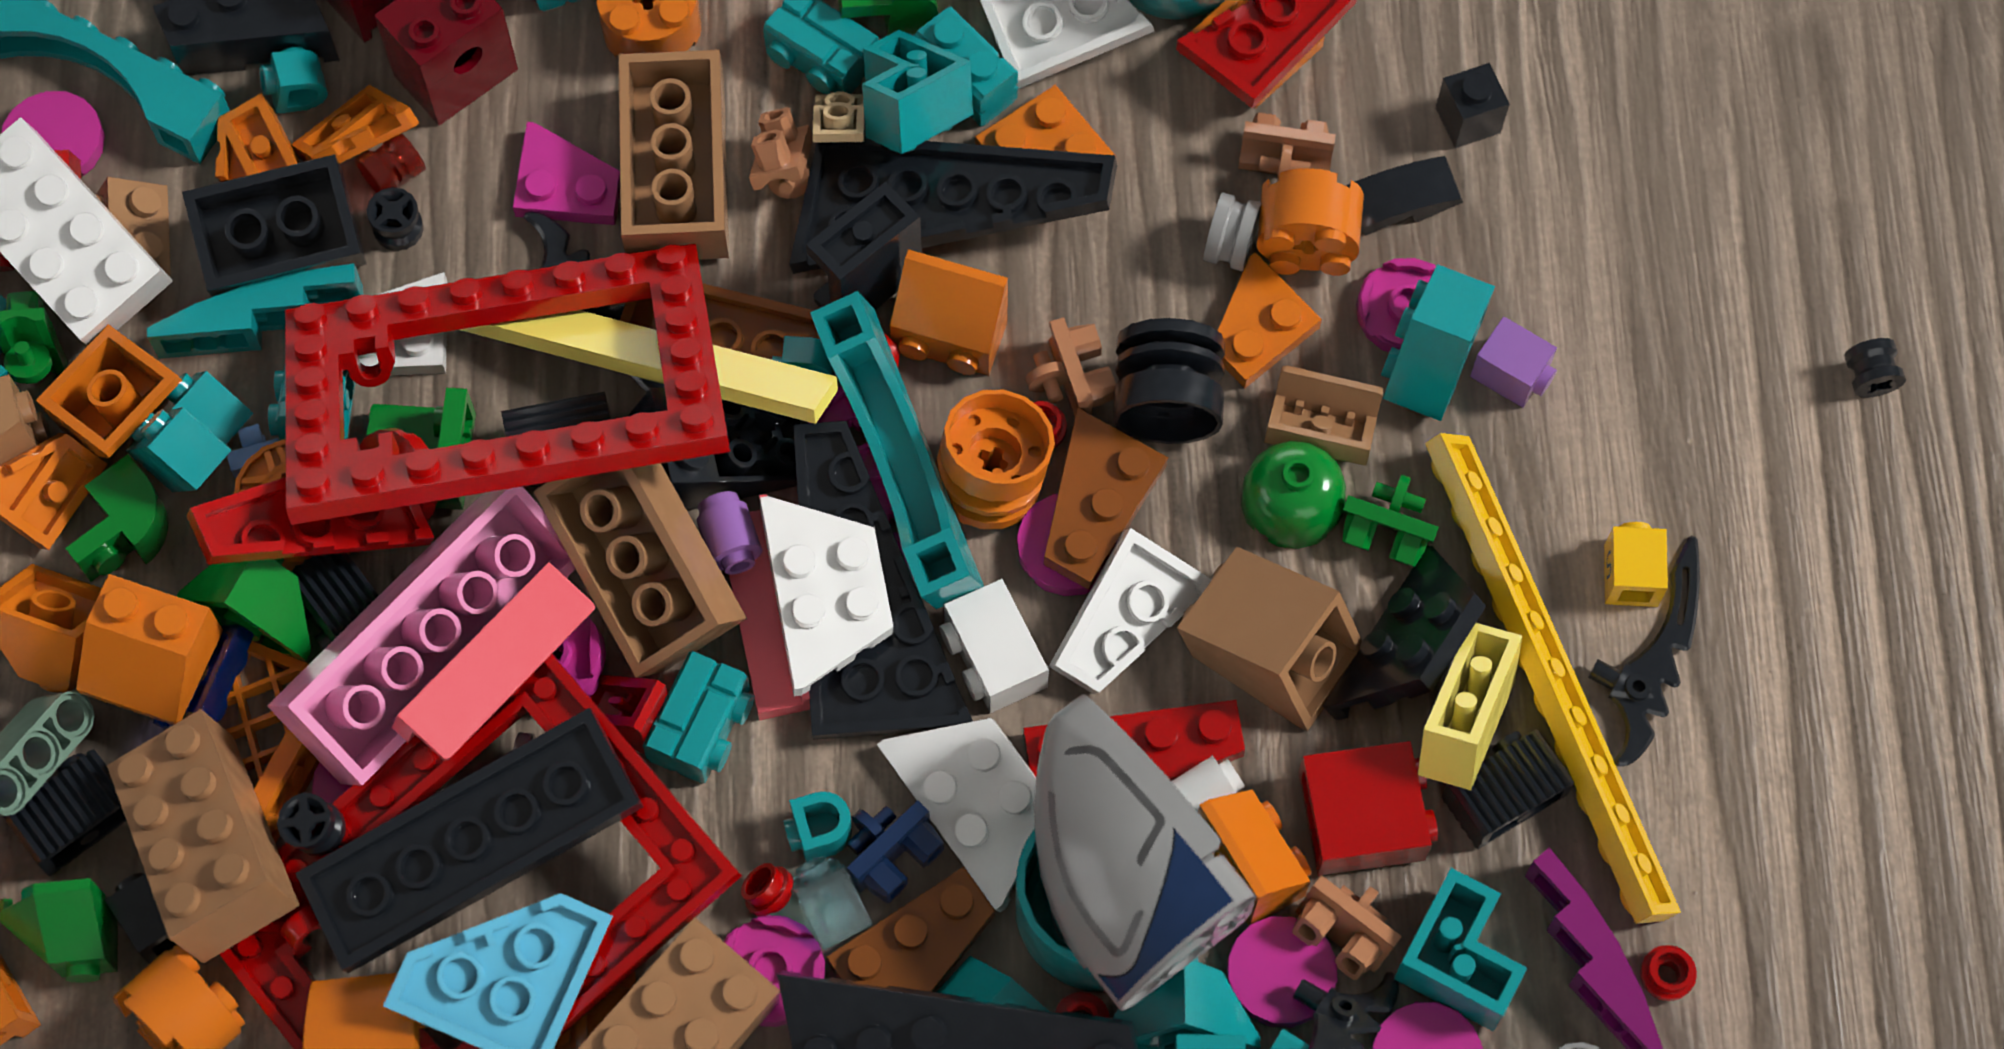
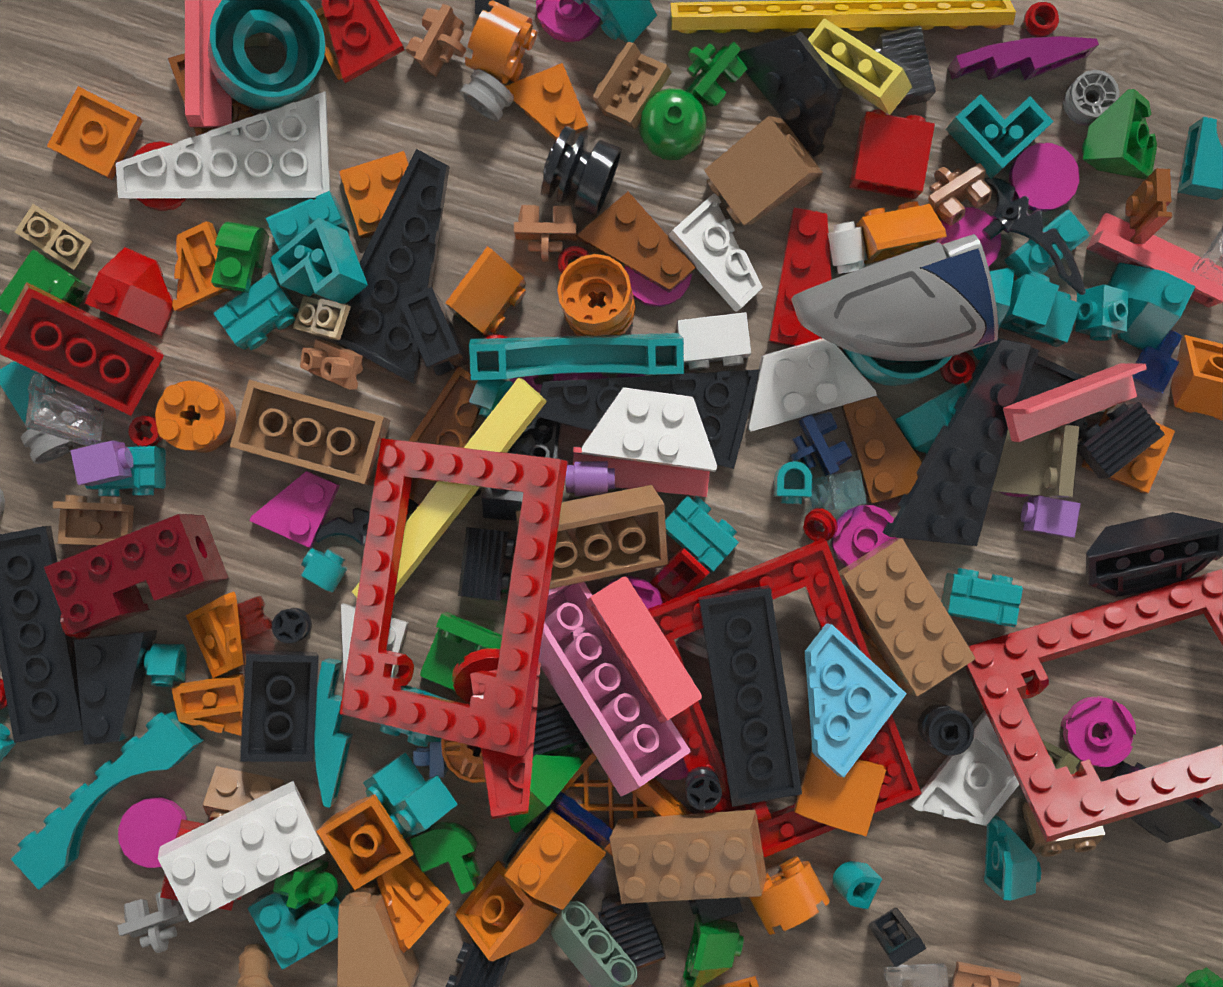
camera: 70 degrees left, 20 degrees up
(487, 232) = (324, 569): none -> teal plate

